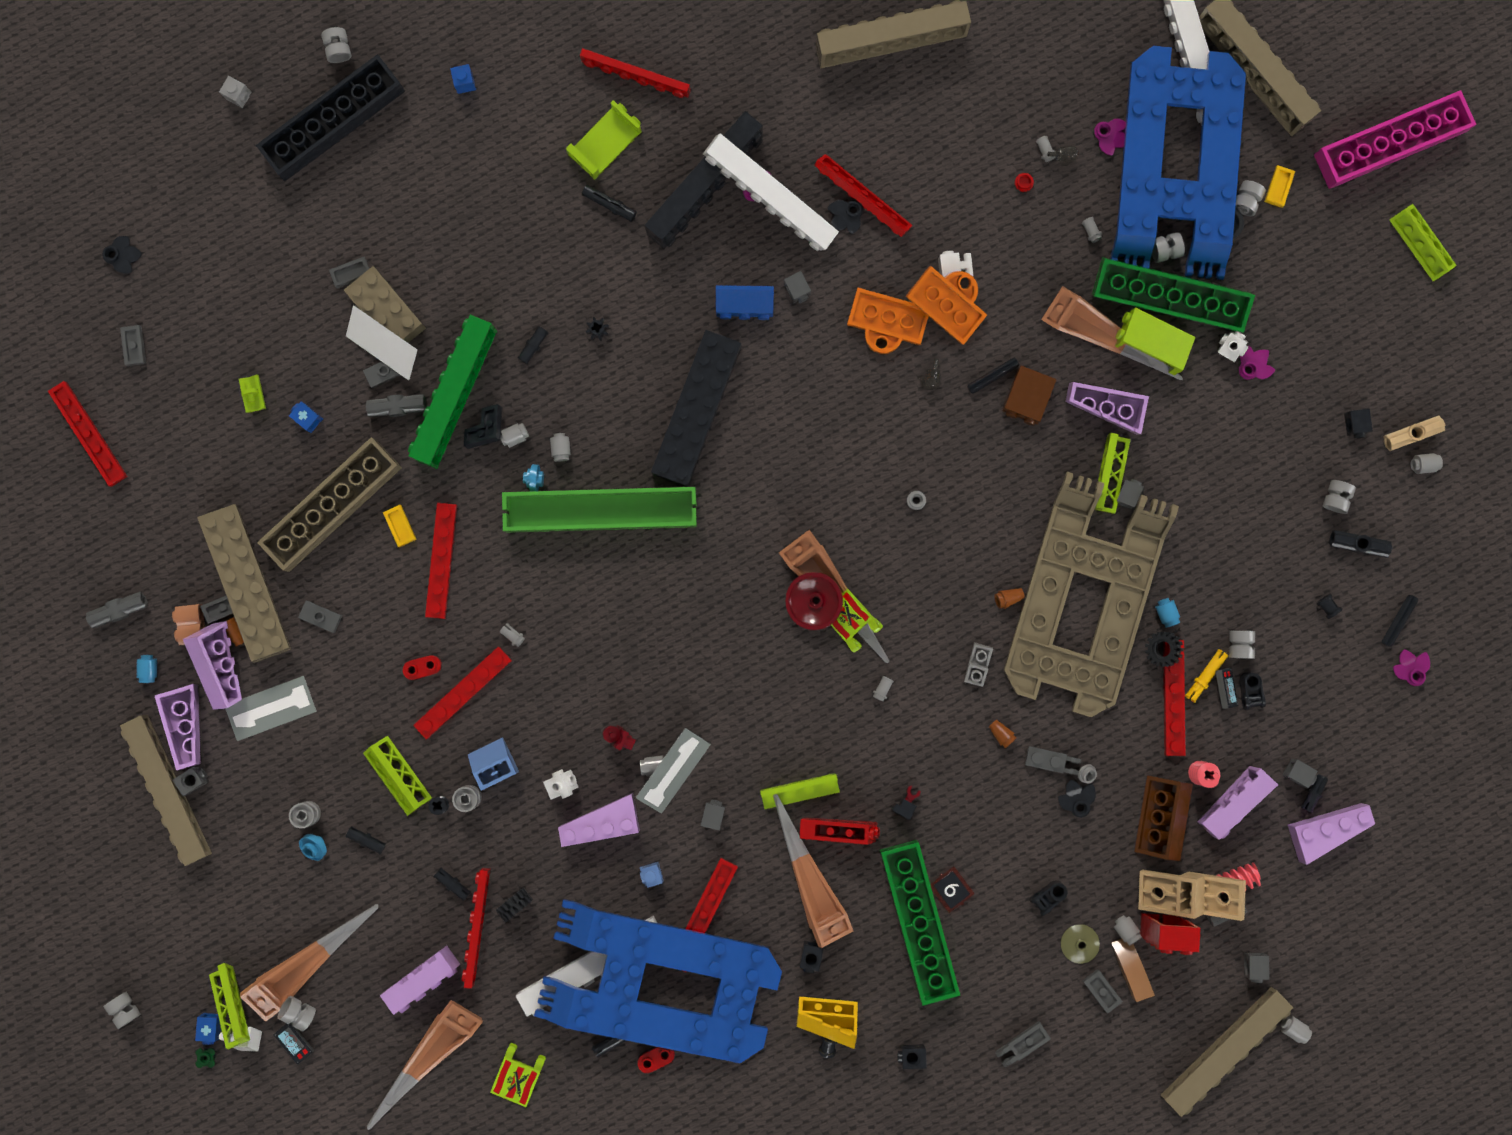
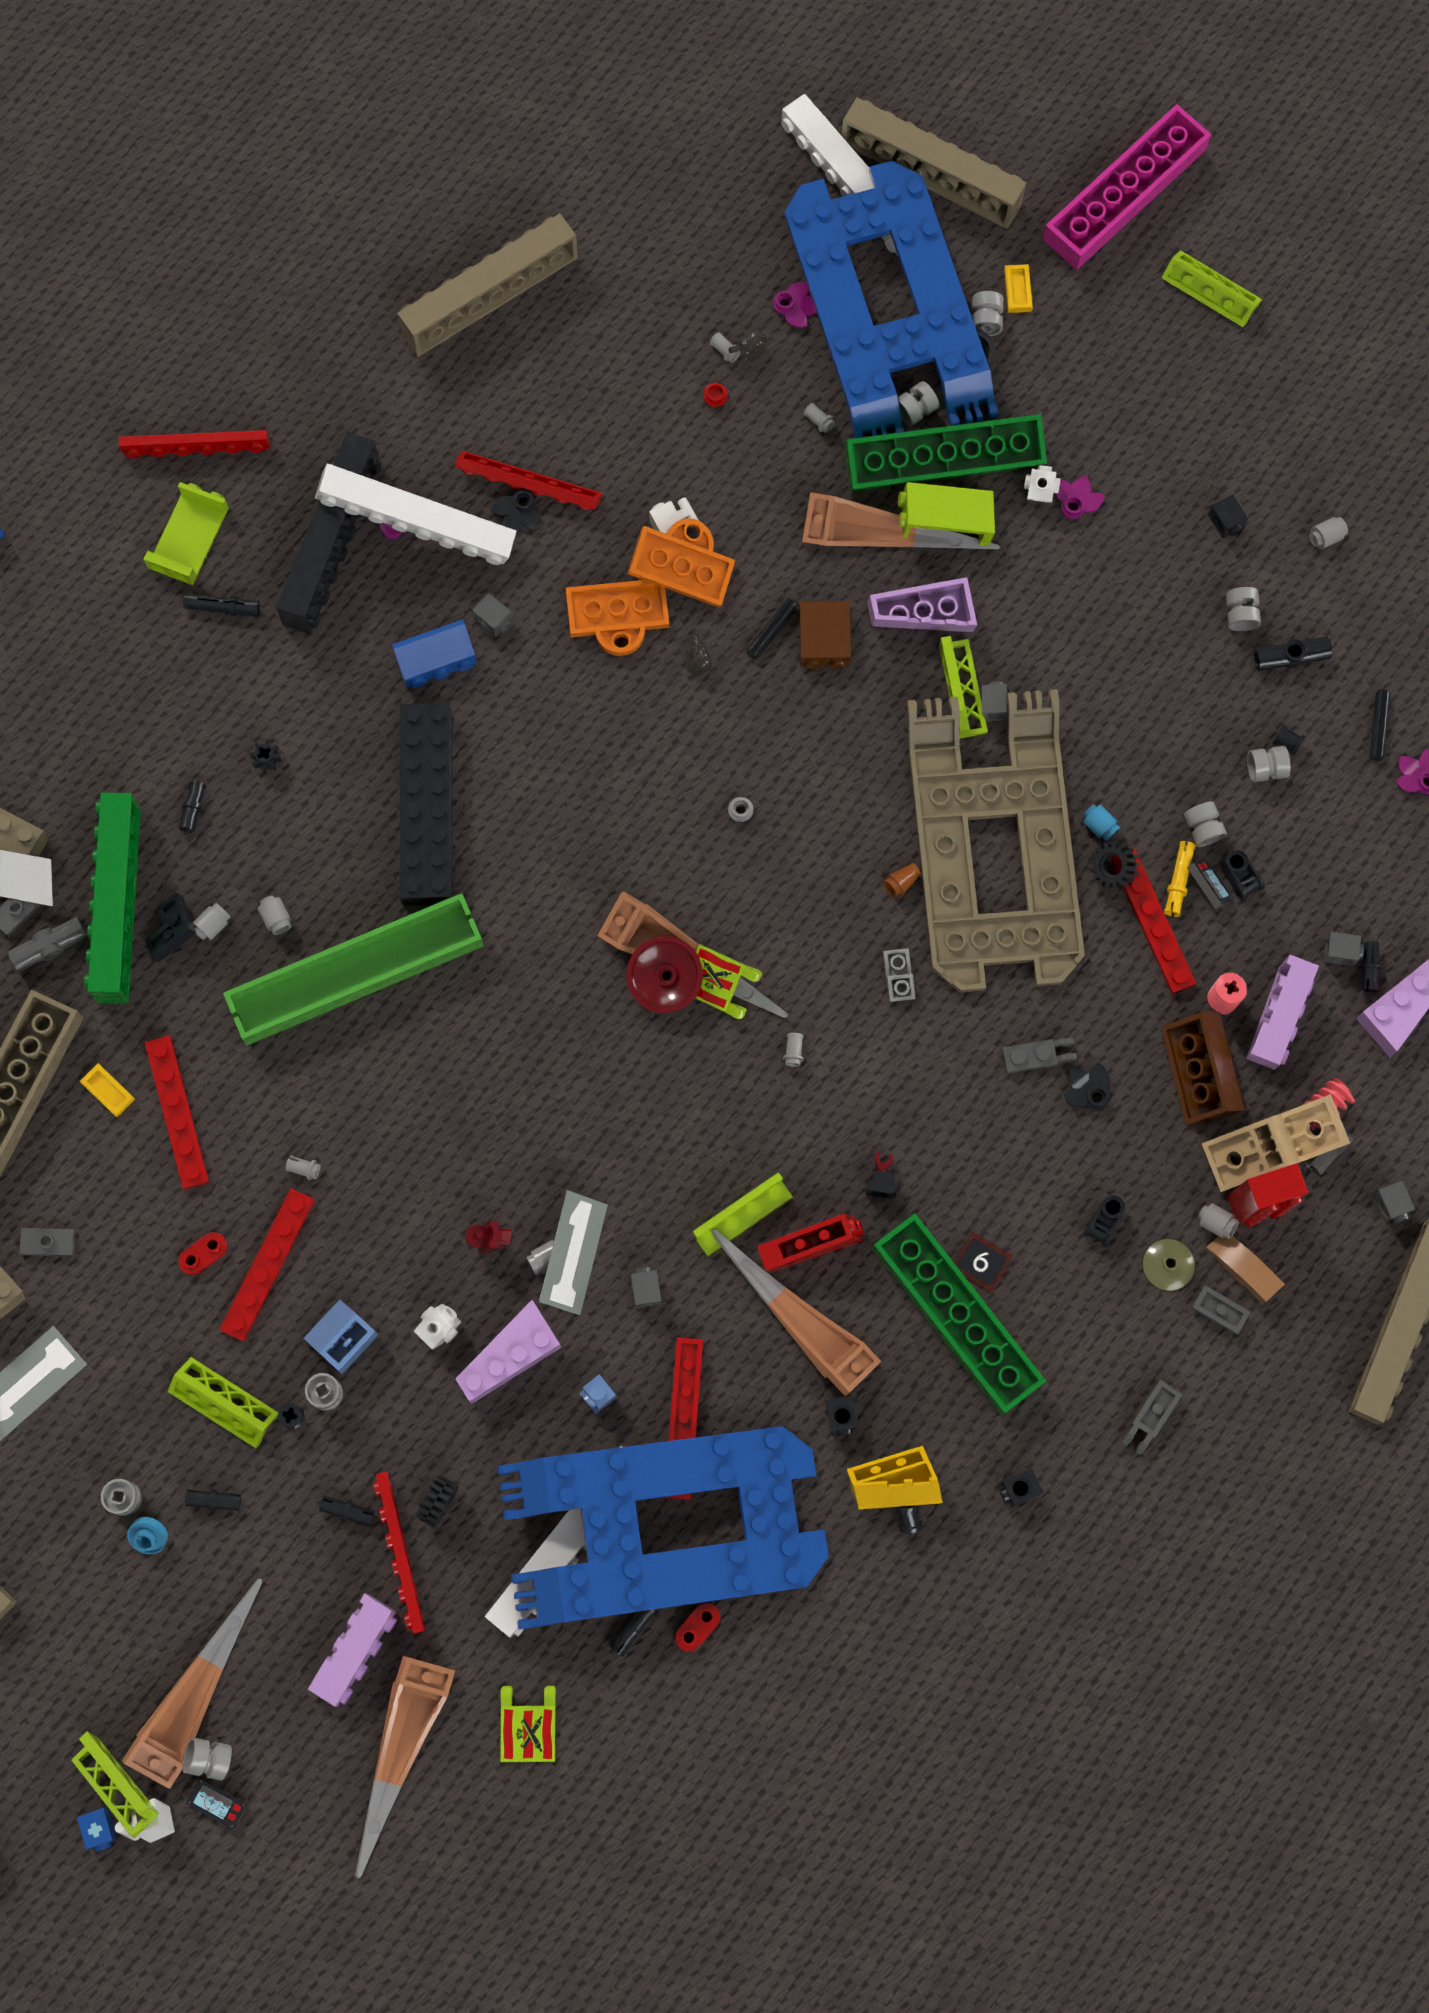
camera: 25 degrees left, 10 degrees down
(209, 1053) = (114, 1875): dark green plate -> none
(533, 478) = (255, 962): dark azure plate -> none
(1002, 733) = (963, 1045): dark orange cone -> none
(1087, 774) = (1087, 1052): light grey plate -> none
(1310, 619) = (1266, 764): none -> light grey wheel
(1404, 436) = (1307, 495): tan piece -> none

